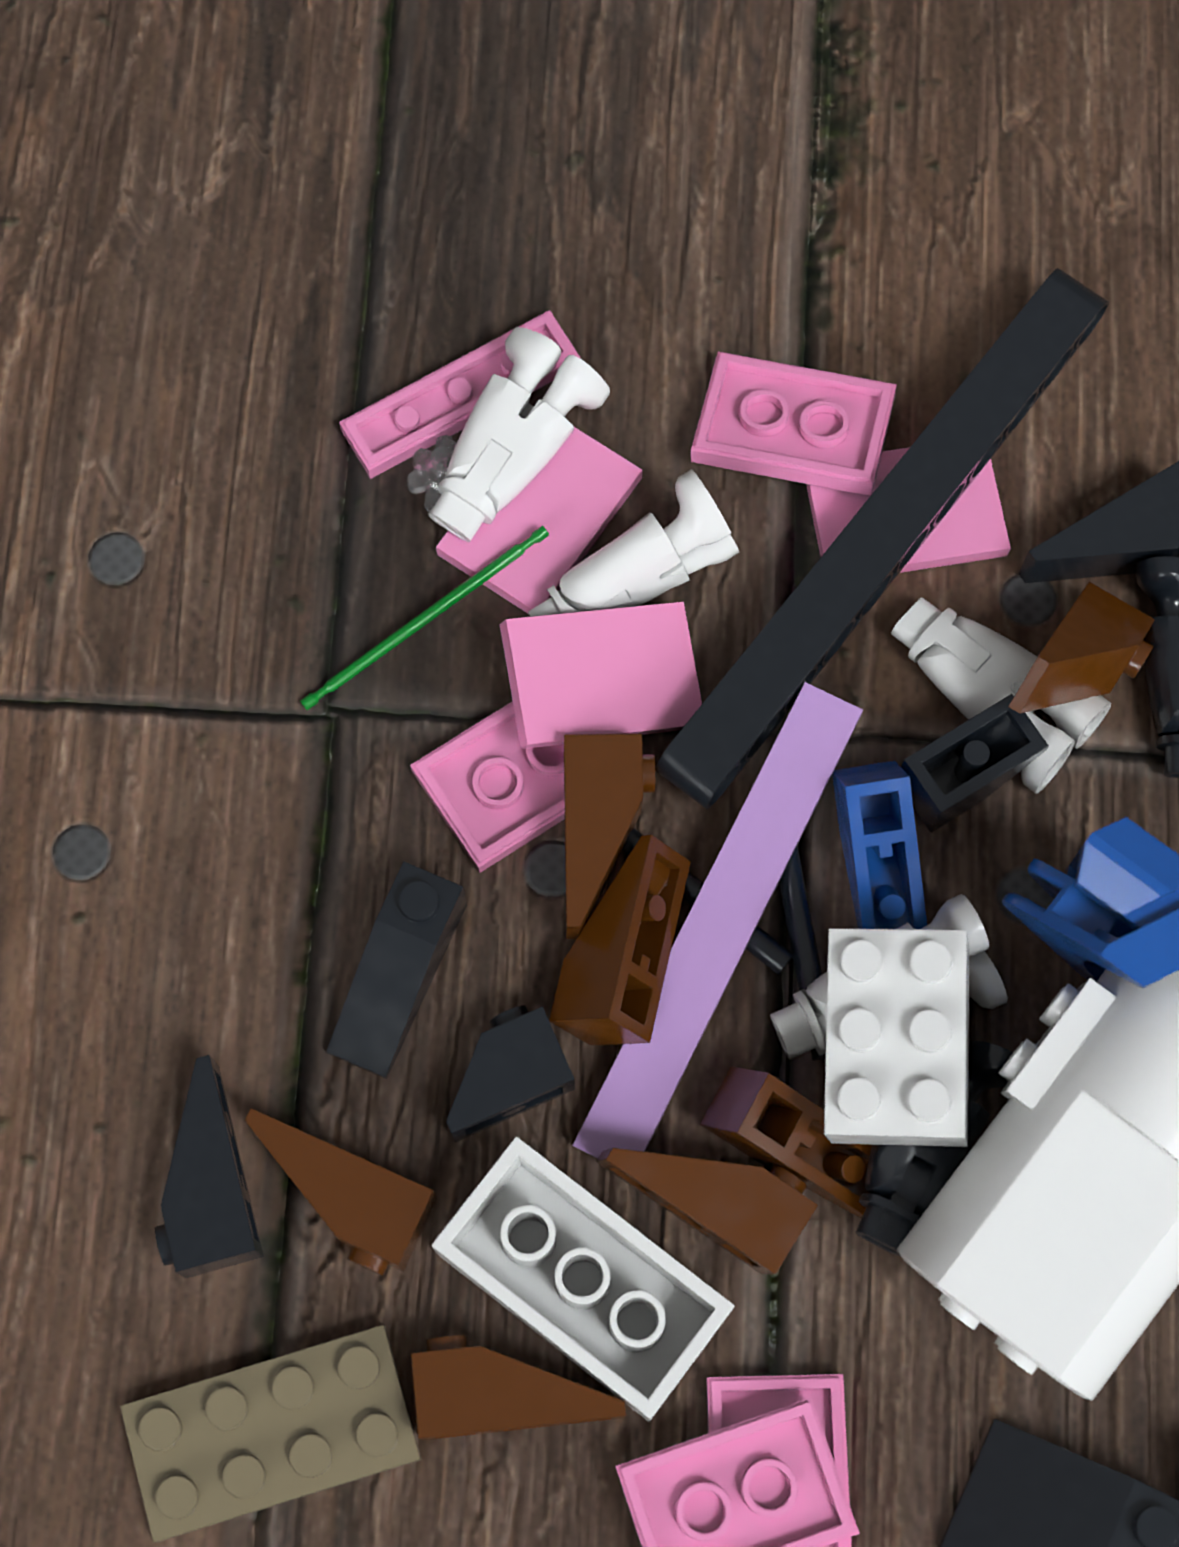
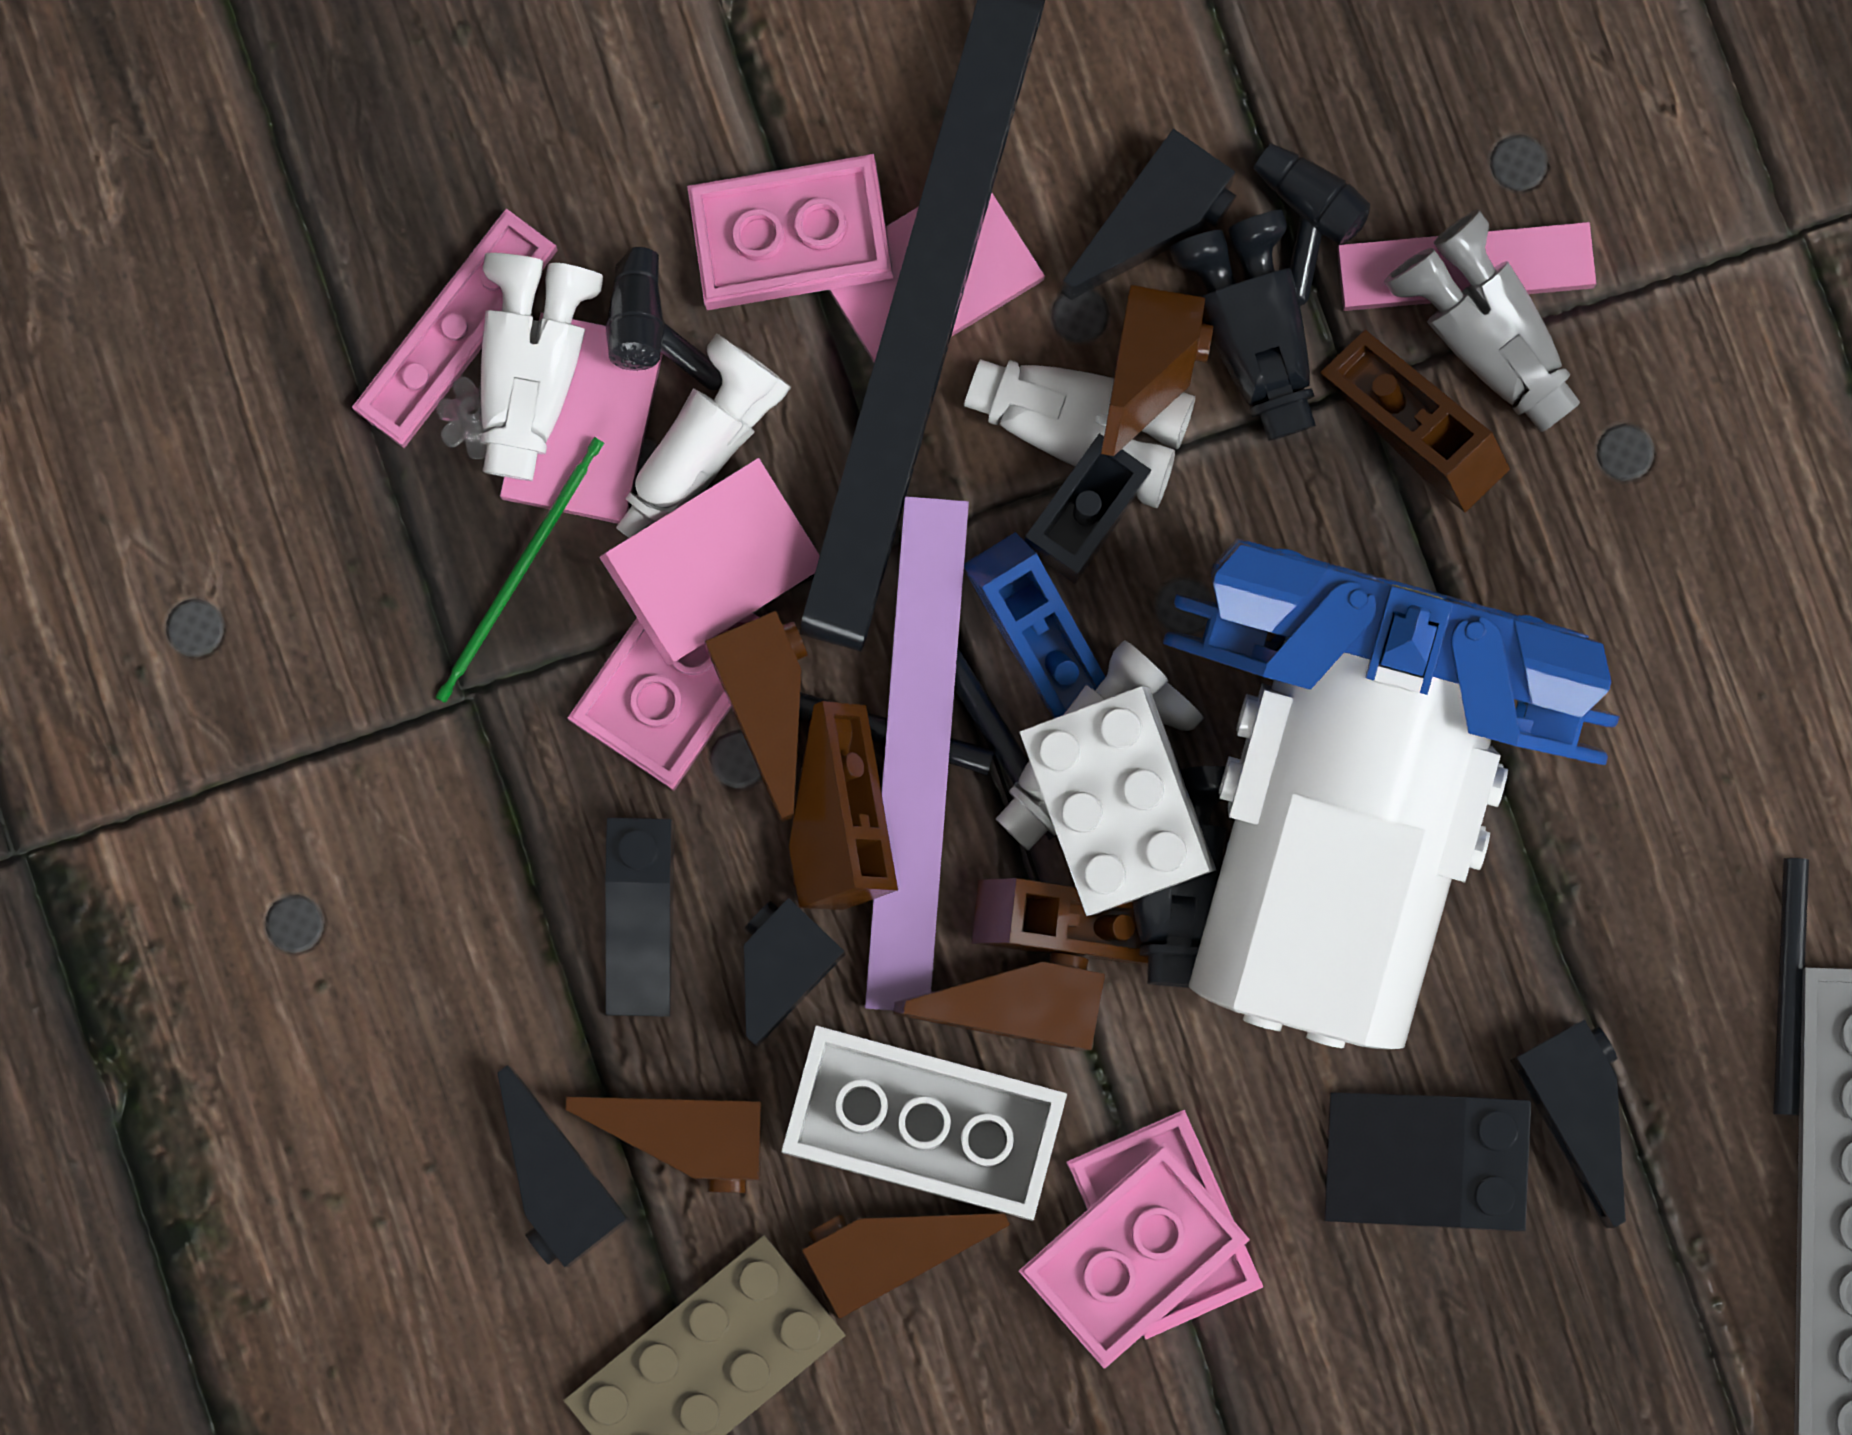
camera: 25 degrees left, 10 degrees up
(621, 448) = (637, 326): none -> black piece

